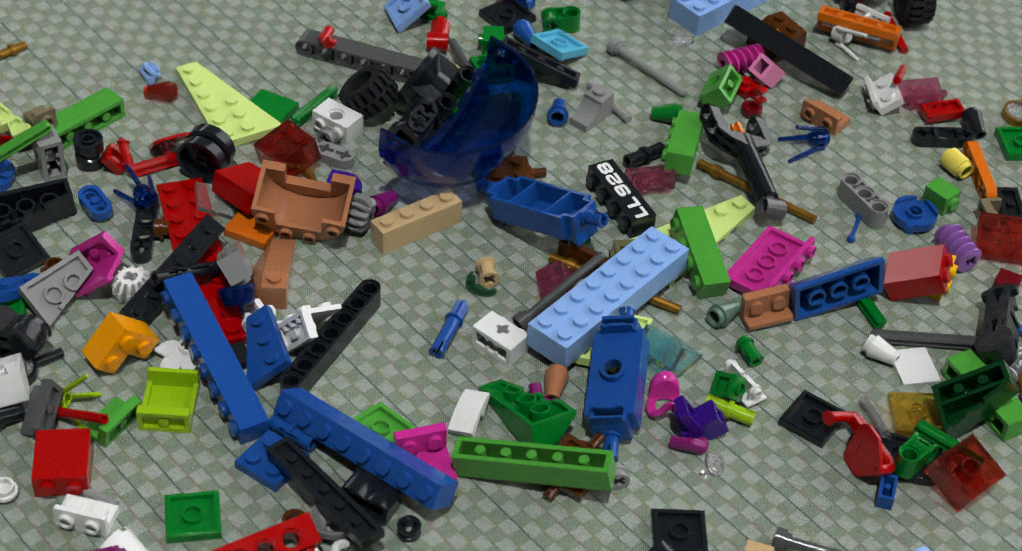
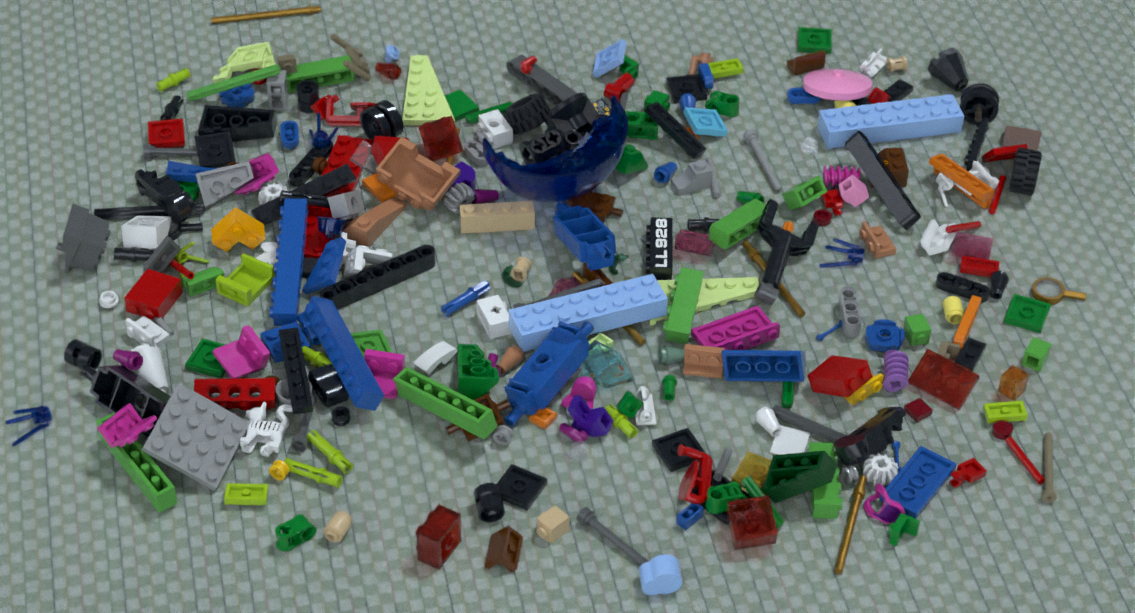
camera: 30 degrees right, 0 degrees up
(121, 94) = (359, 64): none -> dark tan plate
(238, 495) = (243, 355): none -> dark pink bracket
(336, 467) = (317, 359): none -> lime pin
(642, 439) = (543, 418): none -> orange tile

